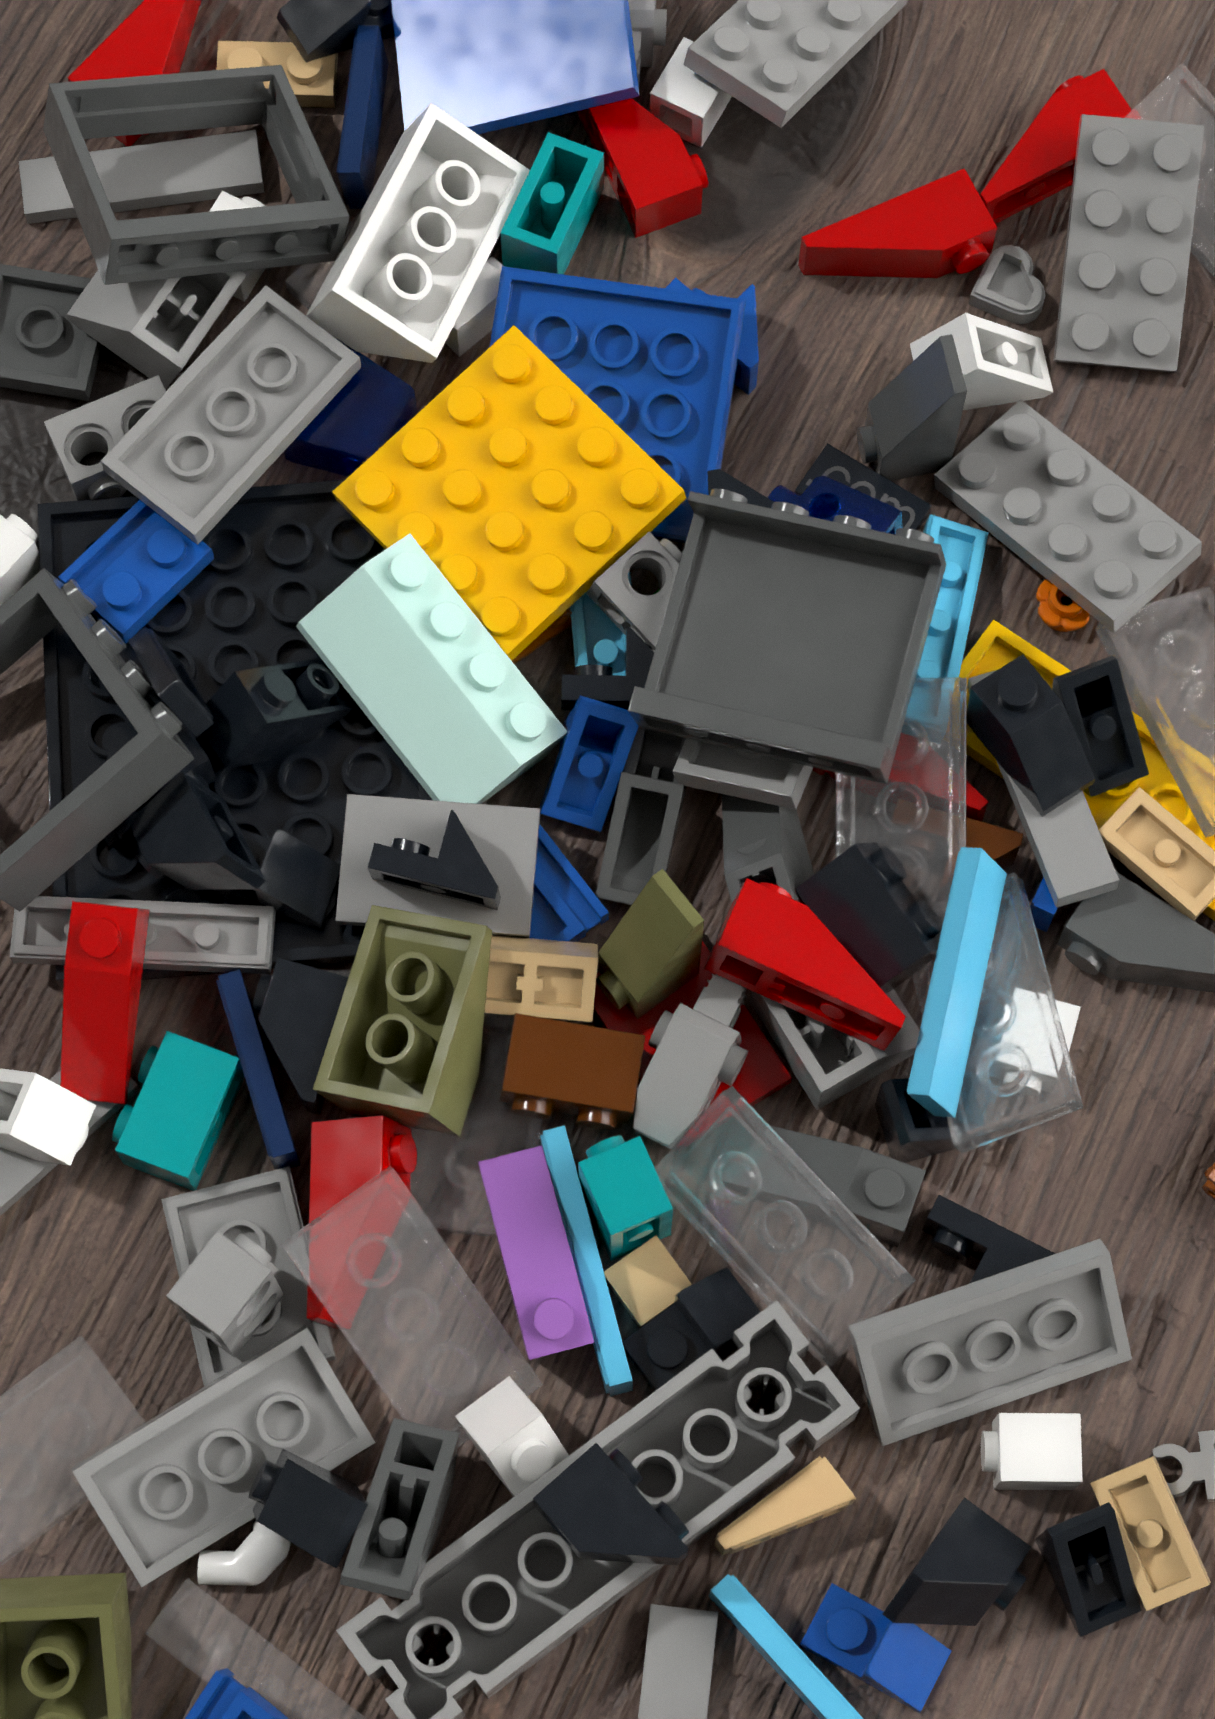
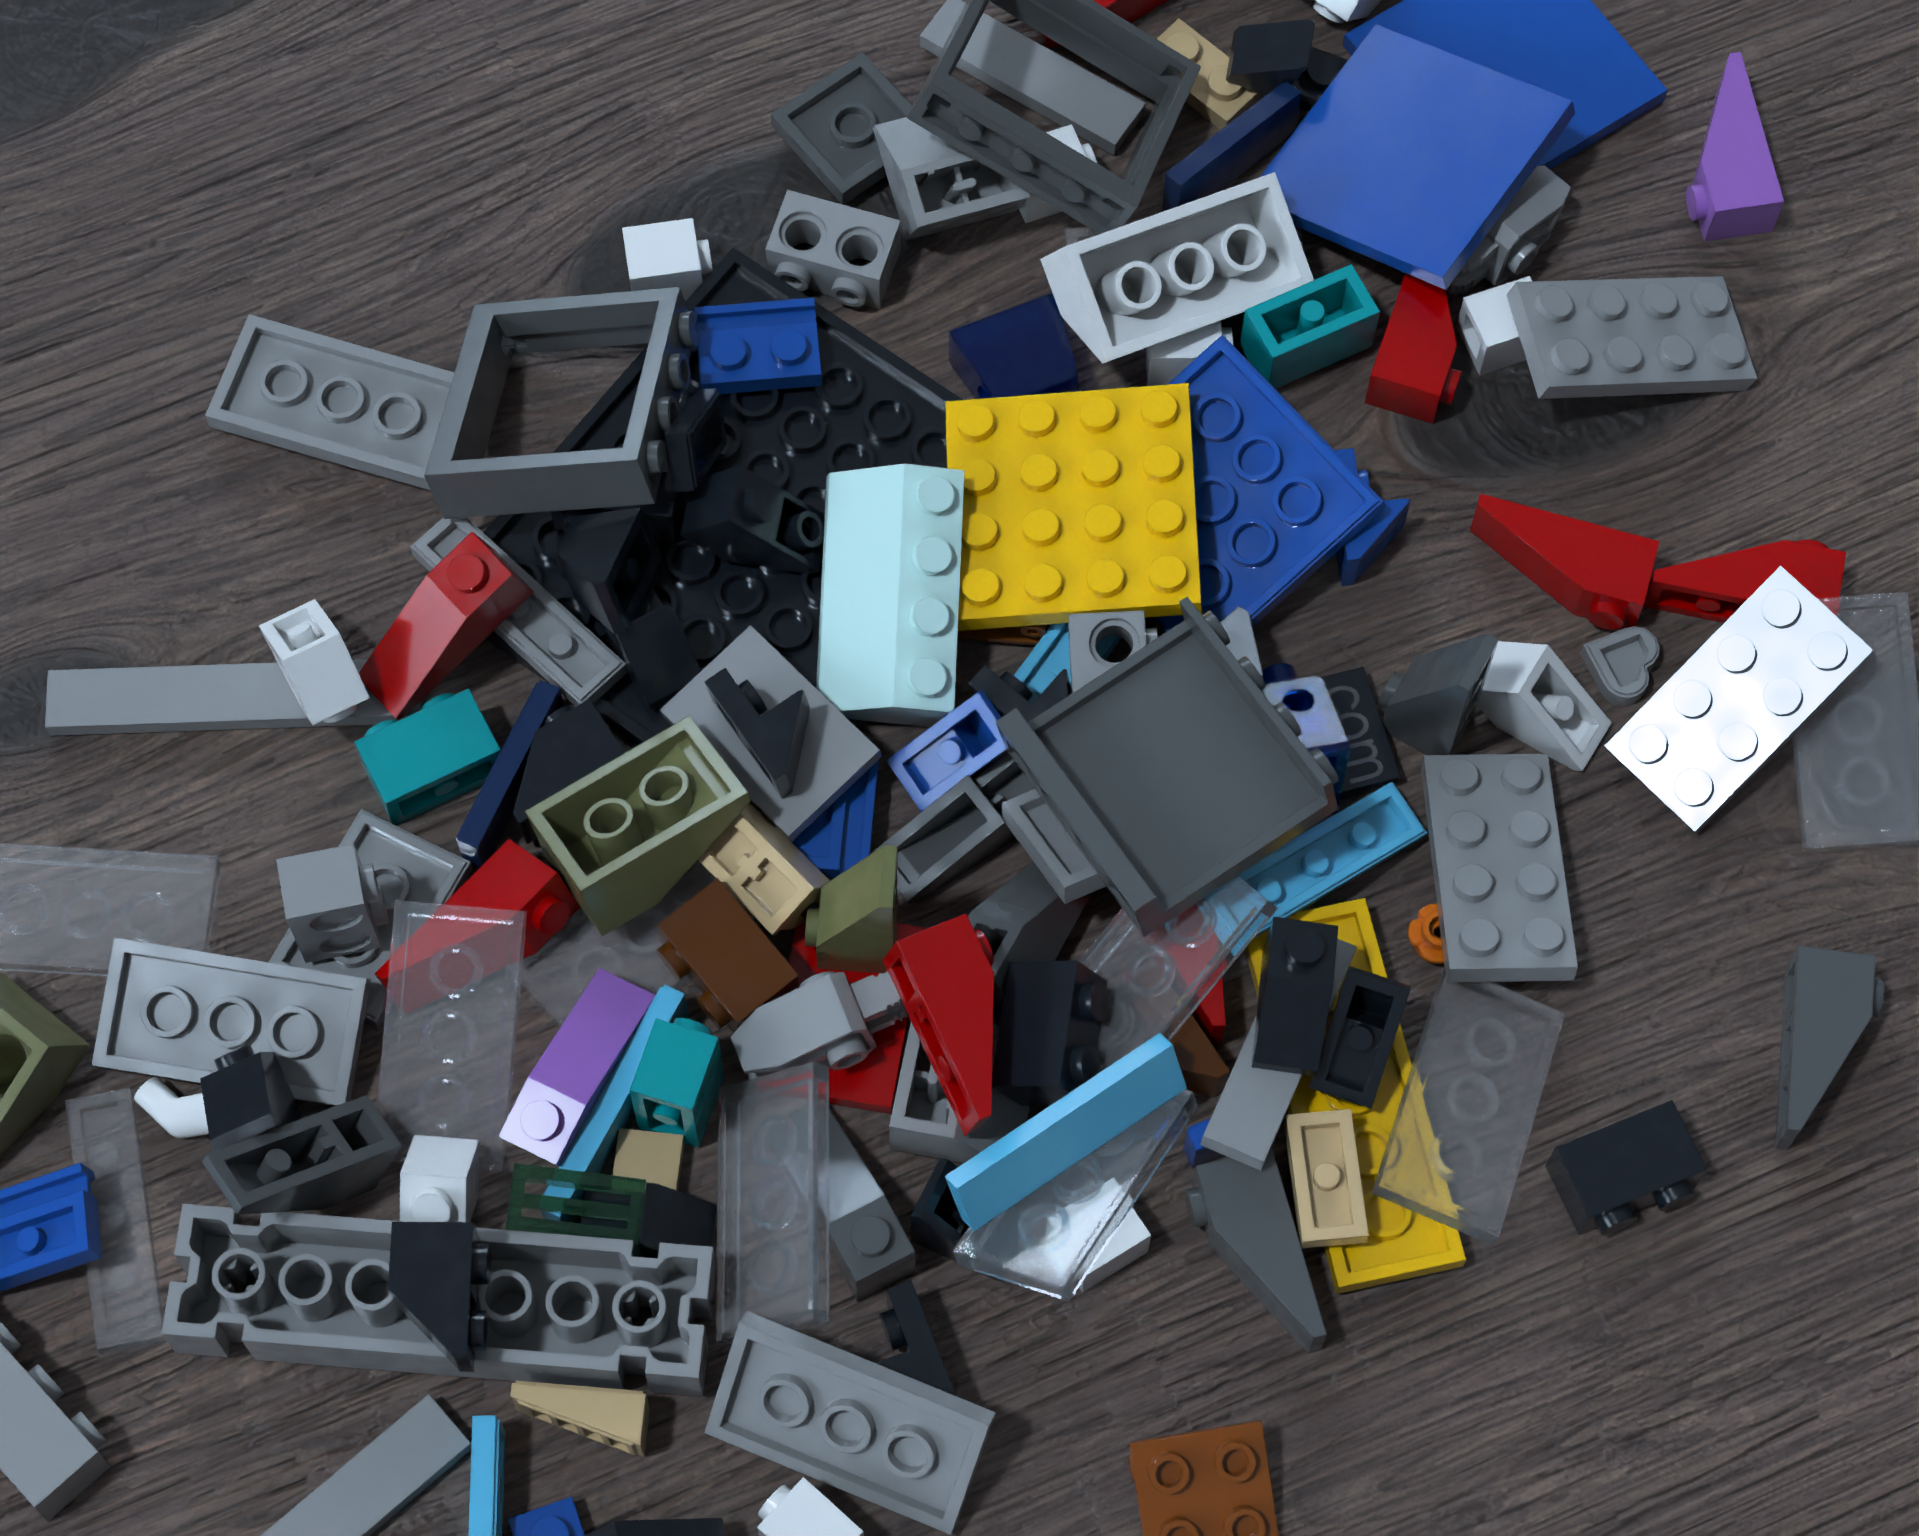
camera: 40 degrees right, 5 degrees down
(231, 414) = (922, 286): light grey plate -> none
(594, 1393) = (577, 1180): none -> clear green tile

